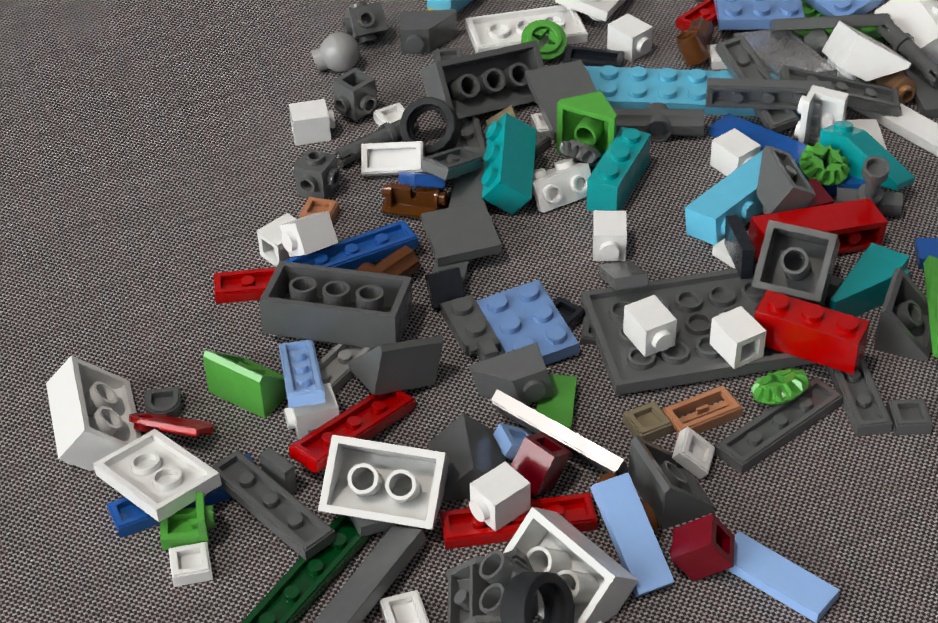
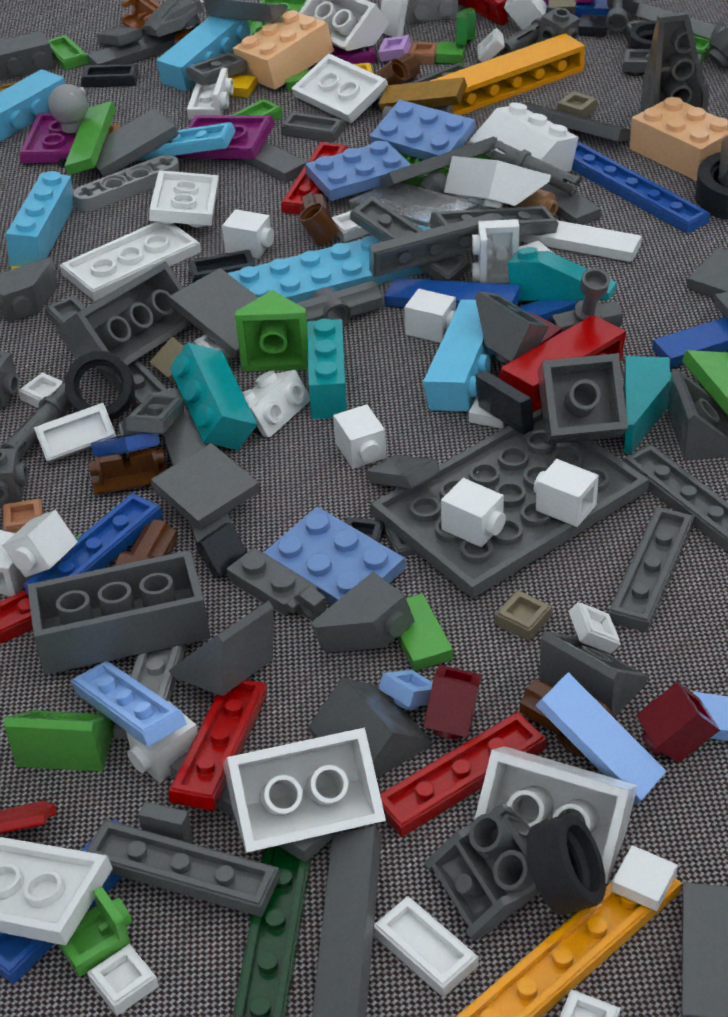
camera: 25 degrees left, 0 degrees up
(500, 496) = (437, 753): white brick -> none
(556, 38) = (149, 253): bright green gear -> none
(574, 442) = (428, 659): tile -> none
(580, 153) = (280, 361): dark grey gear -> none
(706, 416) = (597, 571): nougat tile -> none
(780, 386) = (632, 528): bright green gear -> none
(812, 331) = (638, 460): red brick -> none
(813, 167) = (518, 292): bright green gear -> none

